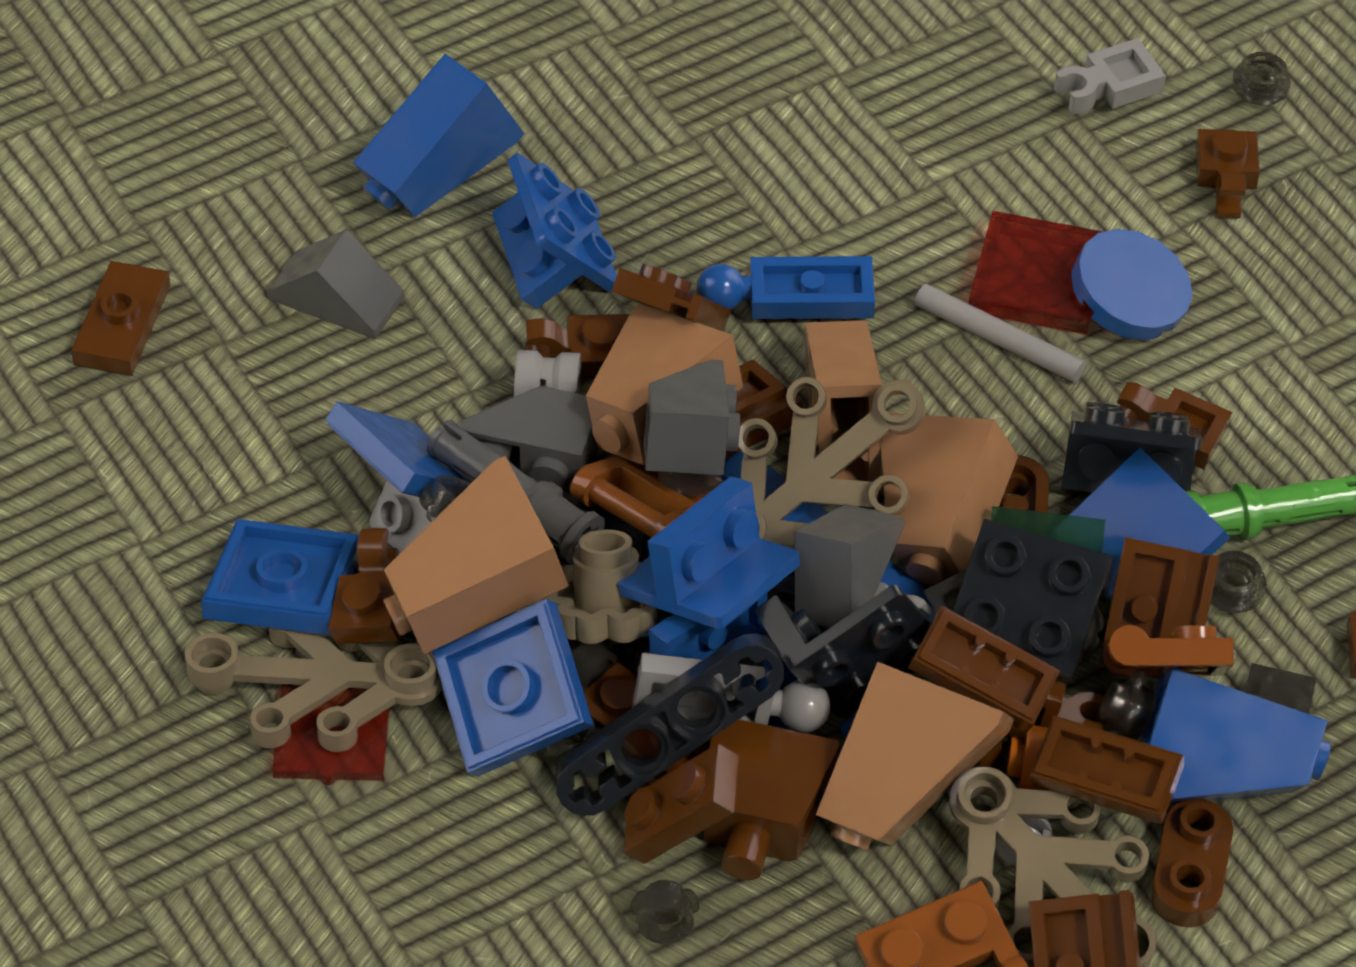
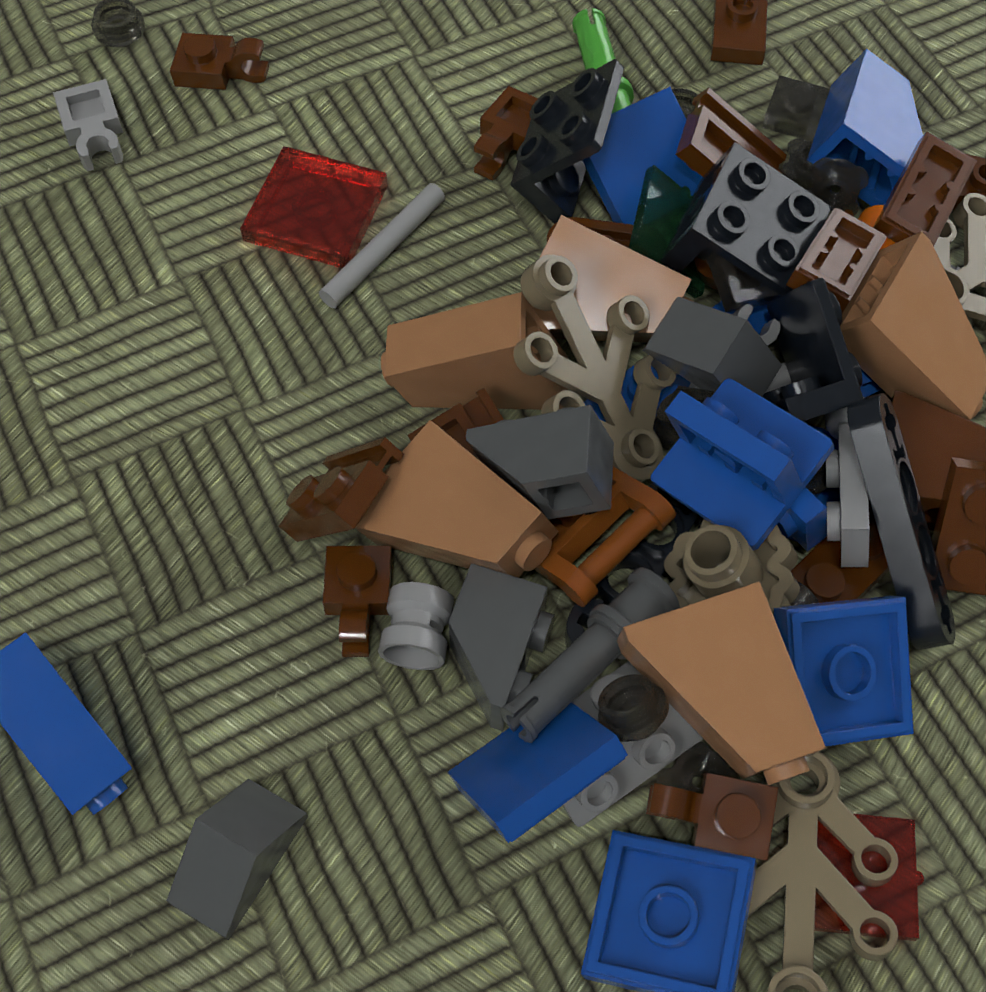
camera: 85 degrees left, 10 degrees up
(551, 234) = (211, 614): blue bracket -> none
(795, 287) = (311, 396): blue plate -> none
(1131, 284) = (350, 136): tile -> none
(1189, 649) = (816, 125): dark orange plate -> none

